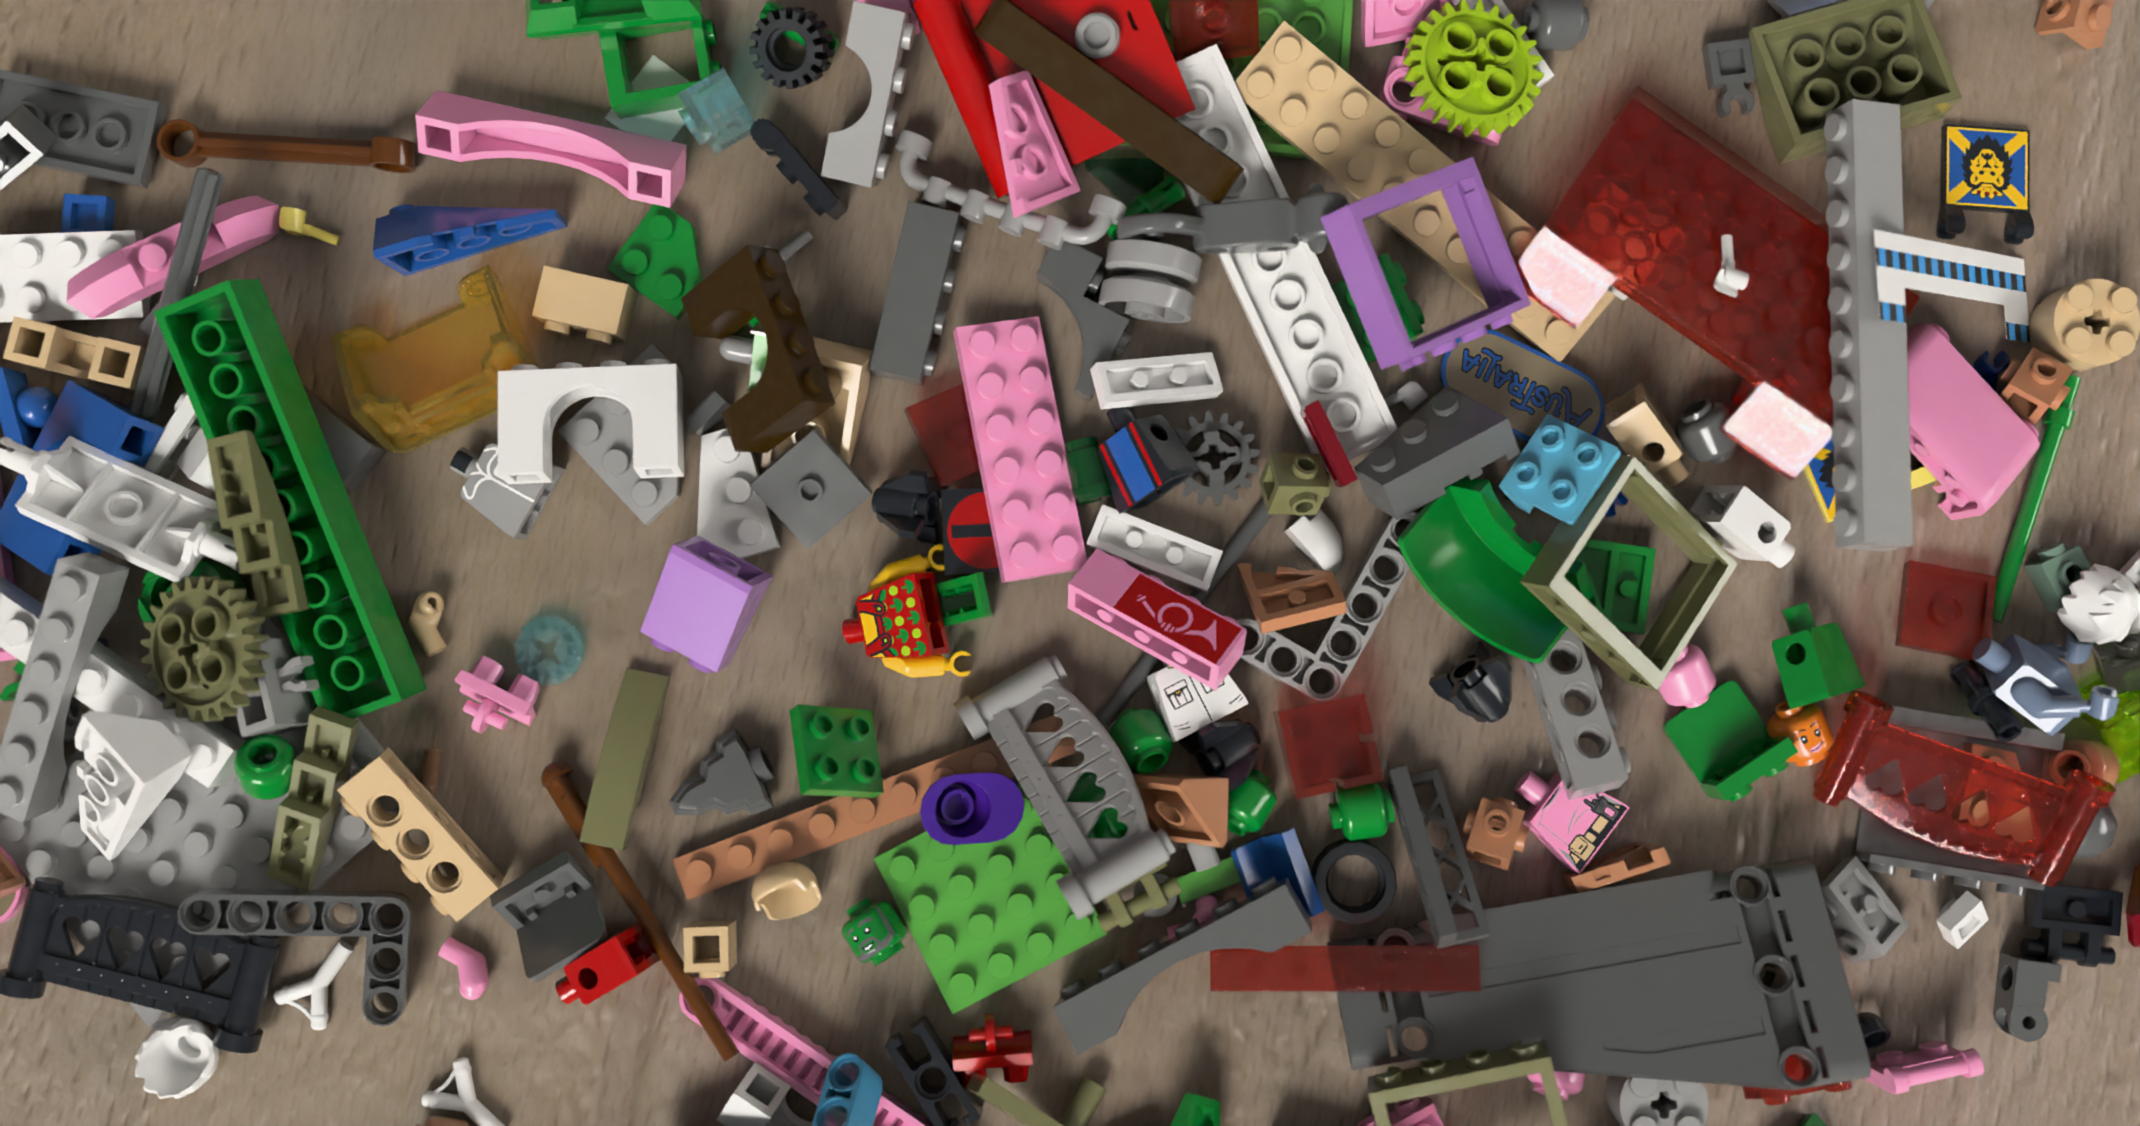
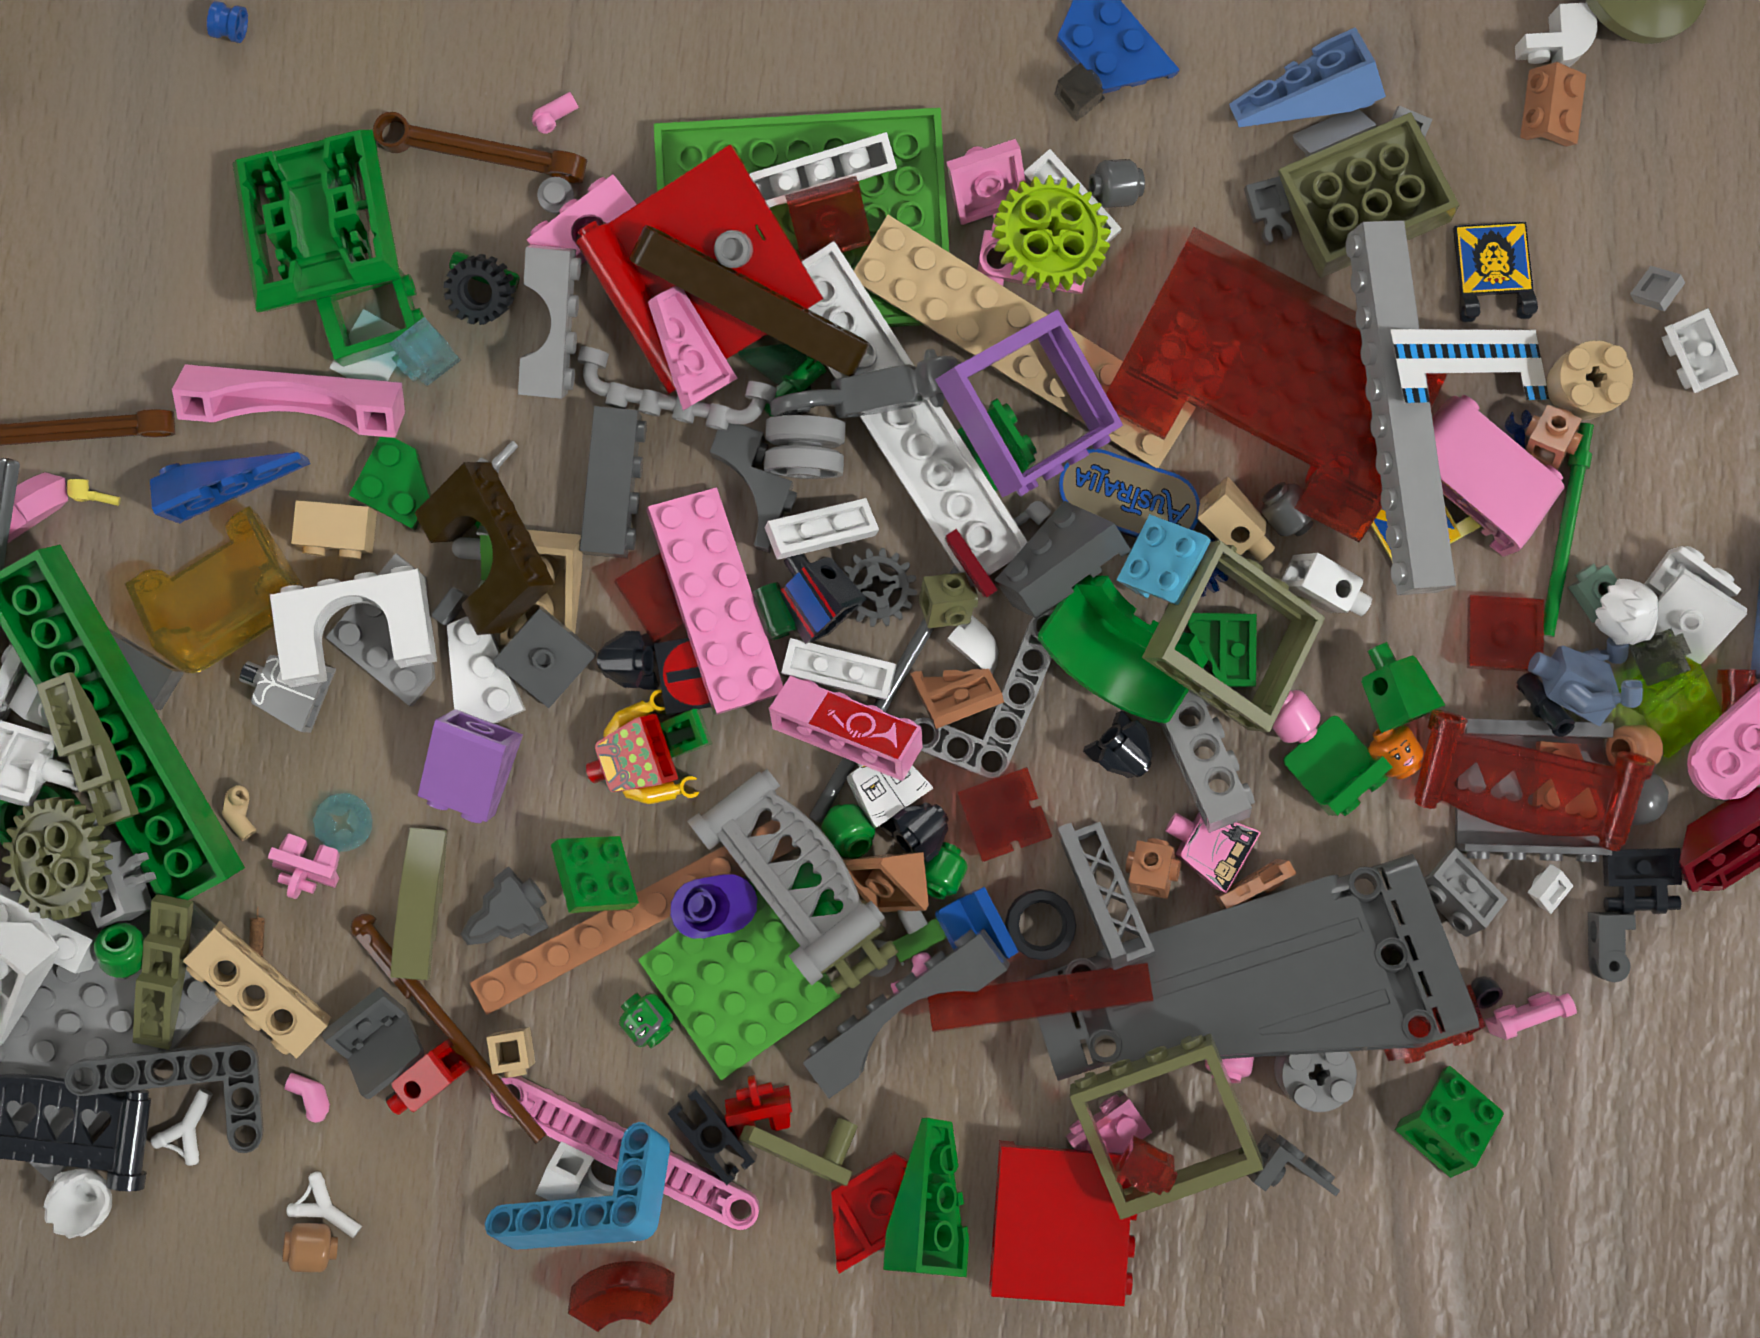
camera: 10 degrees left, 0 degrees up
(786, 890) = (568, 996): tan hair -> none
(796, 168) = (497, 389): black hinge -> none
(1362, 811) = (1039, 865): green head -> none
(1728, 278) = (1282, 384): white hand -> none

